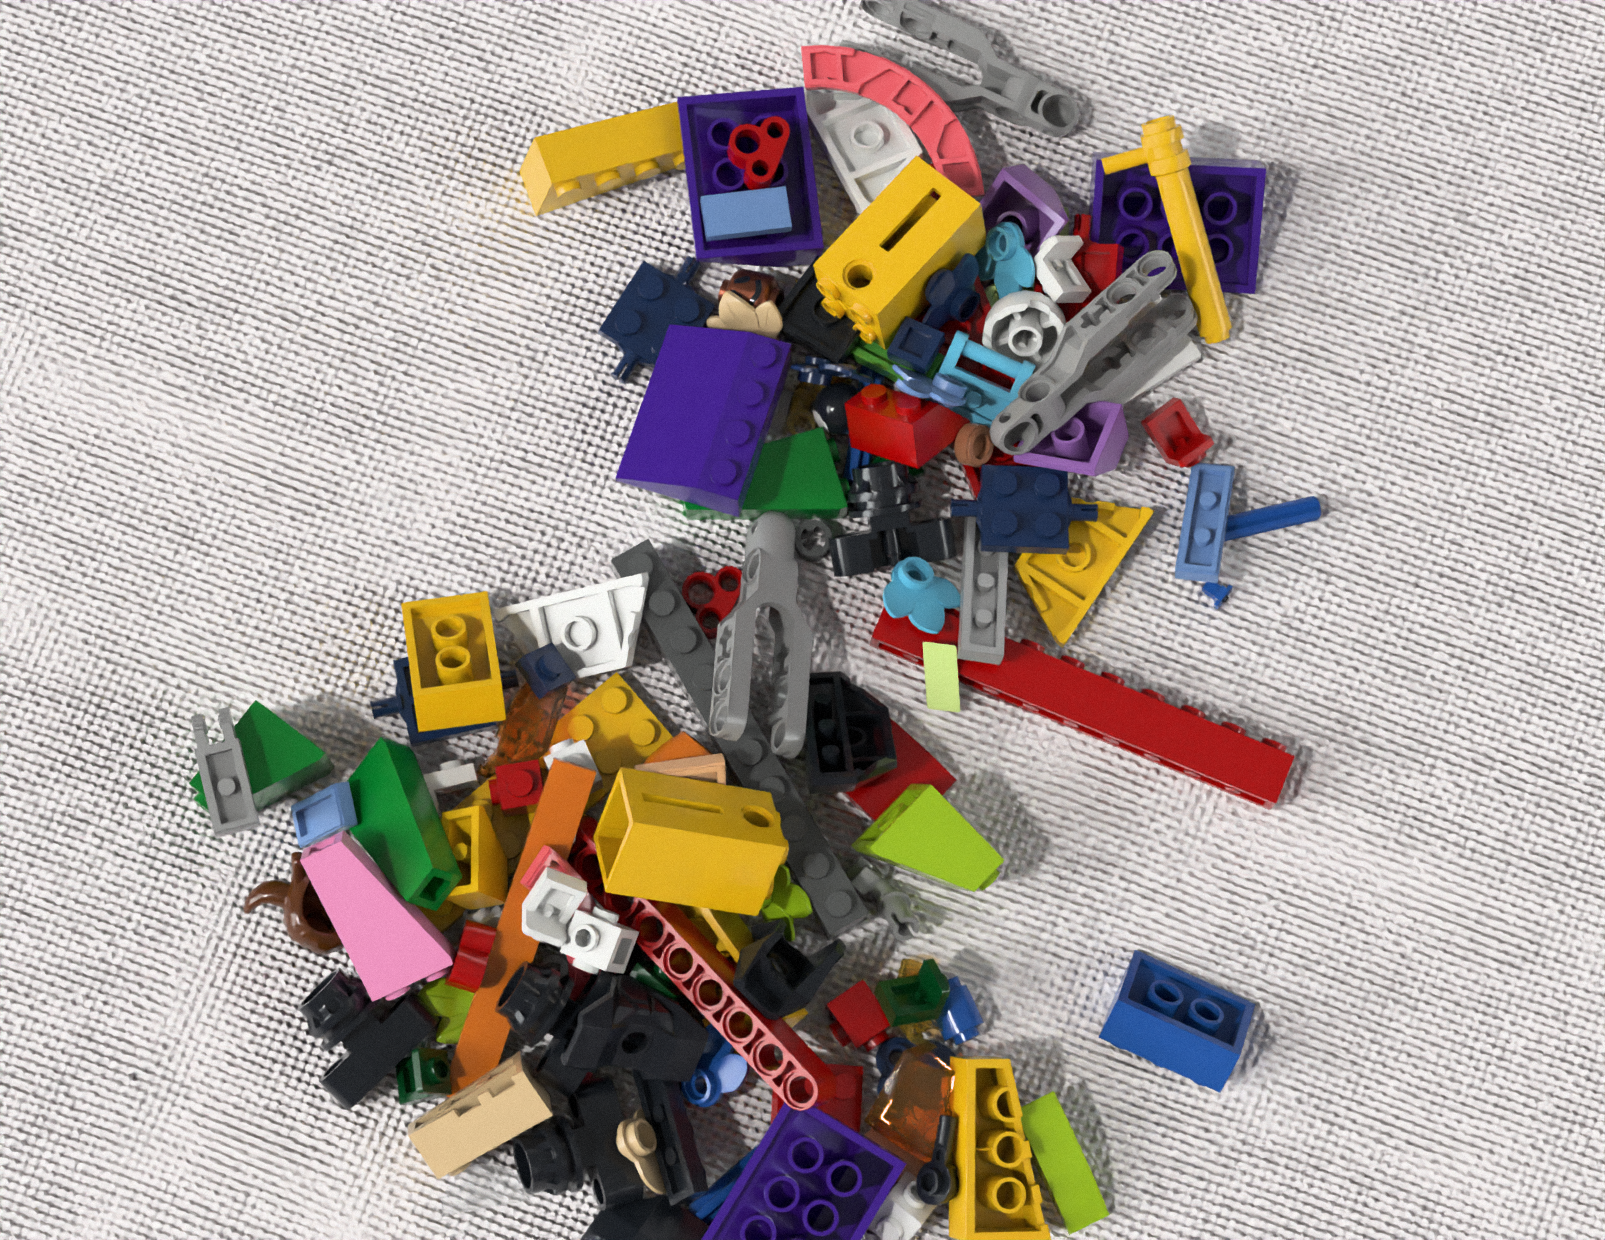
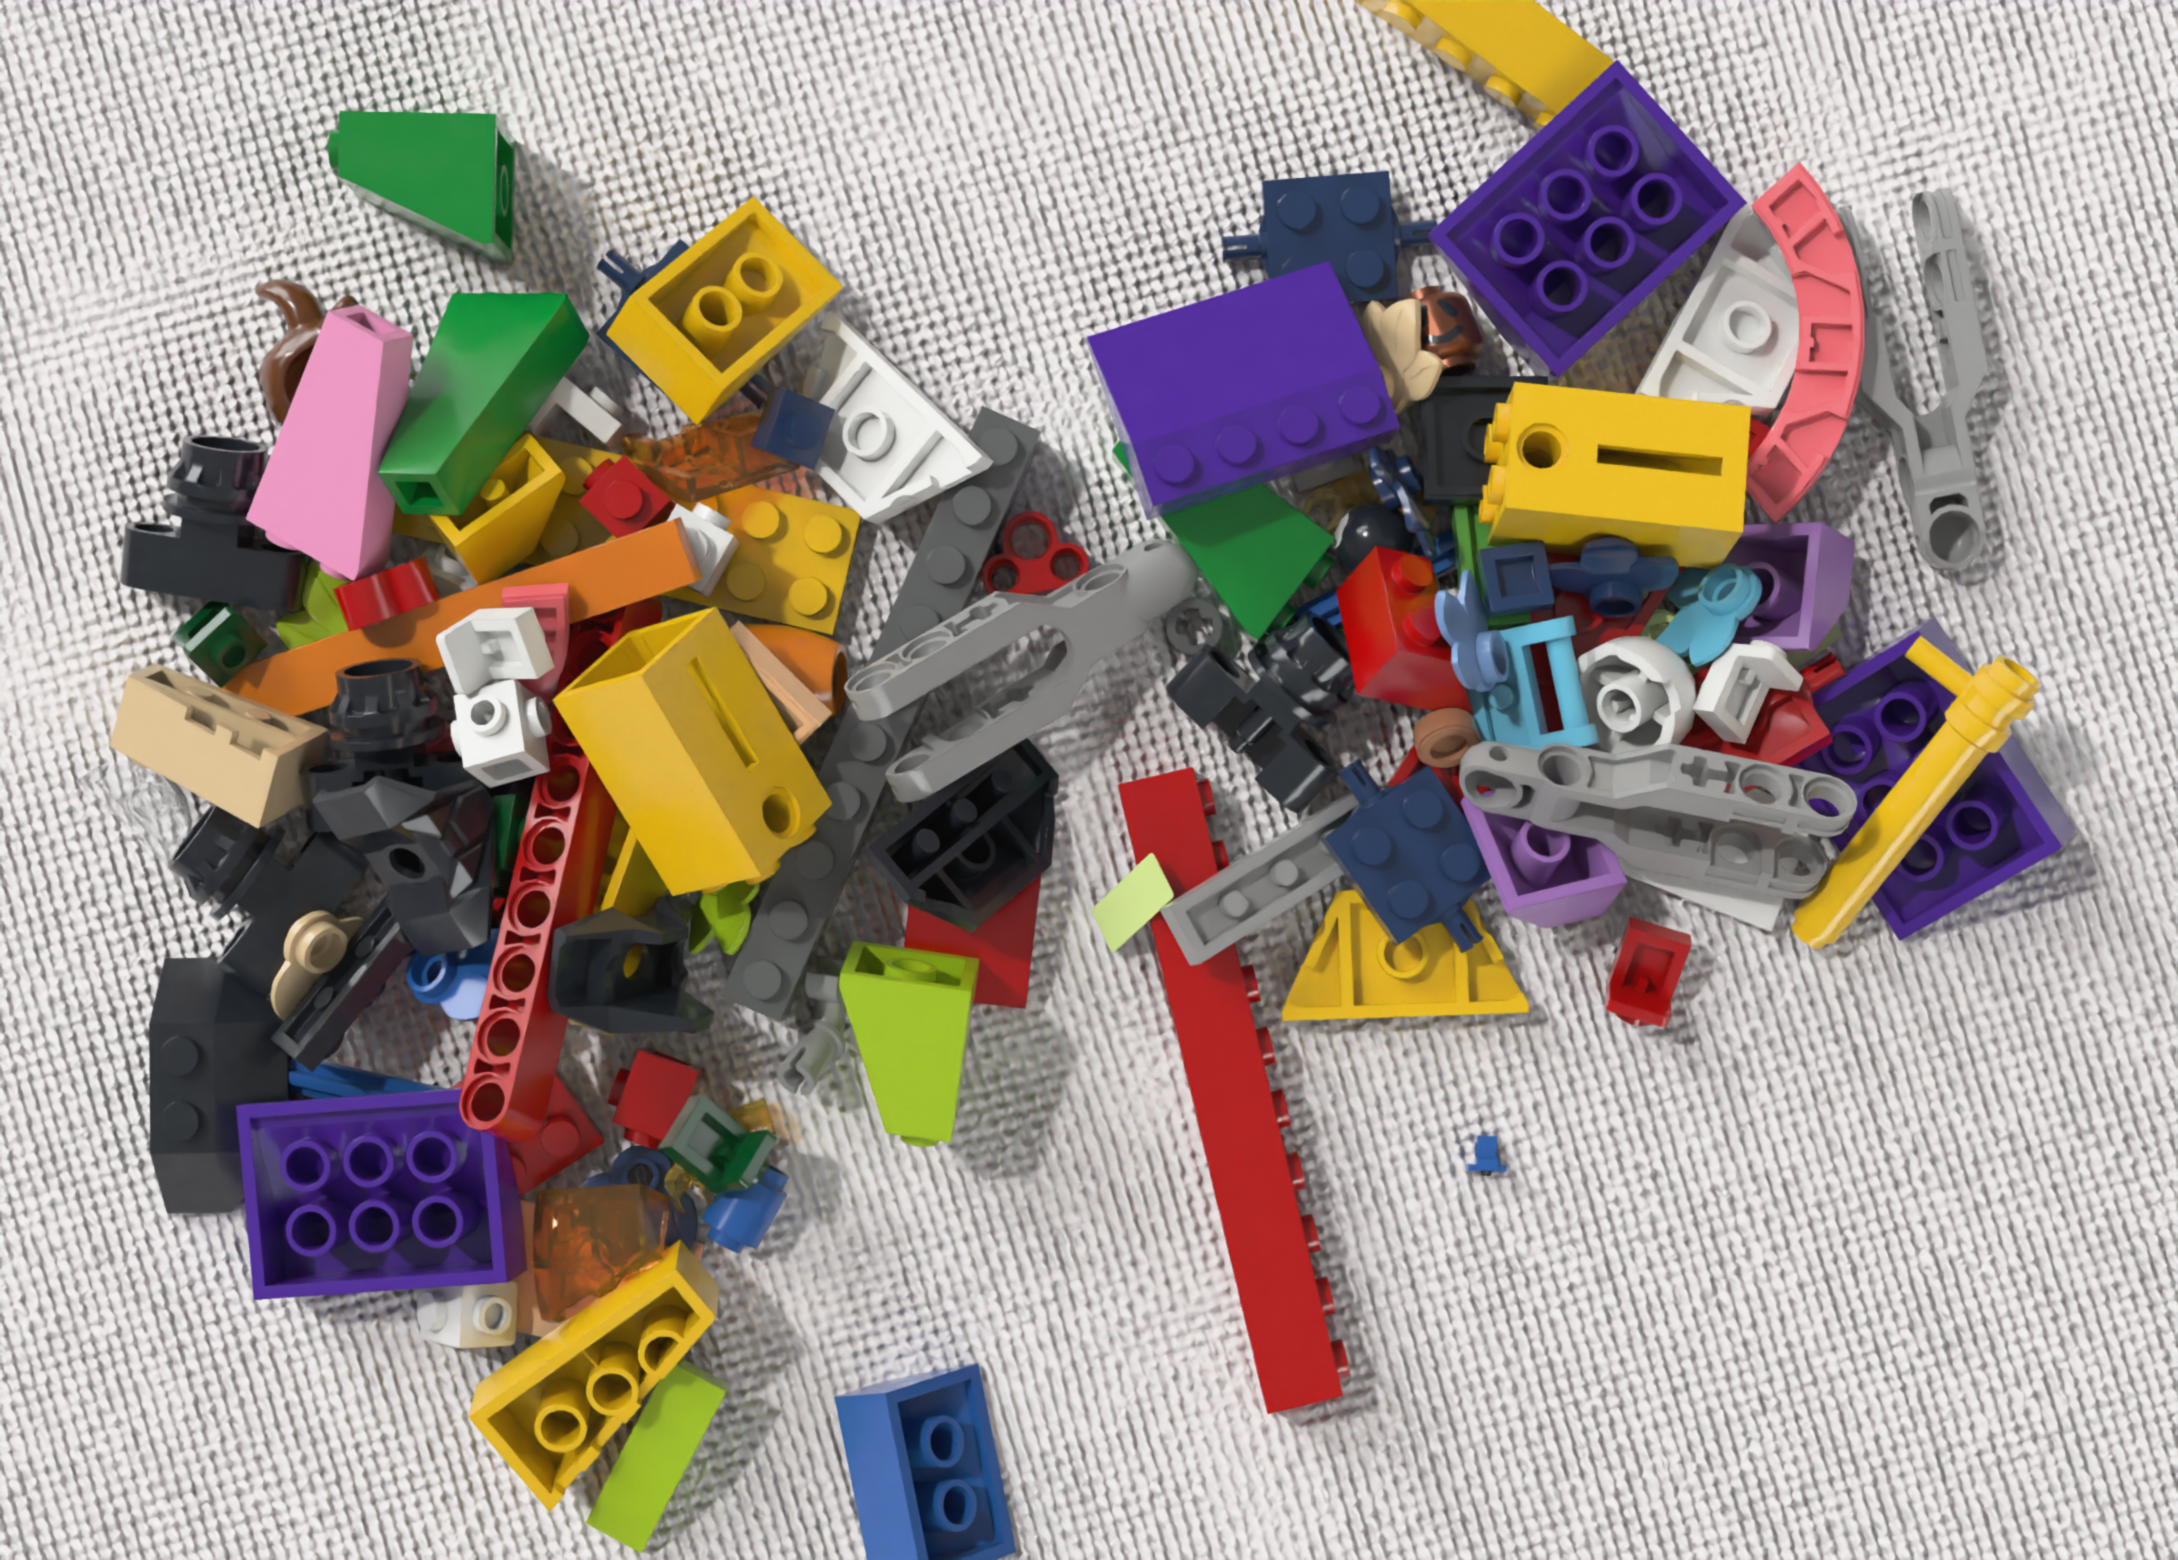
camera: 60 degrees right, 10 degrees up
(225, 777) = (373, 146): light grey hinge -> none
(324, 814) = (434, 296): medium blue tile -> none
(746, 213) = (1528, 252): medium blue tile -> none
(766, 156) = (1624, 223): red piece -> none
(919, 595) = (1202, 812): medium azure plate -> none
(938, 1178) = (524, 1329): black plate -> none
(1204, 522) = (1558, 1084): medium blue tile -> none
(1272, 517) = (1612, 1145): blue axle -> none

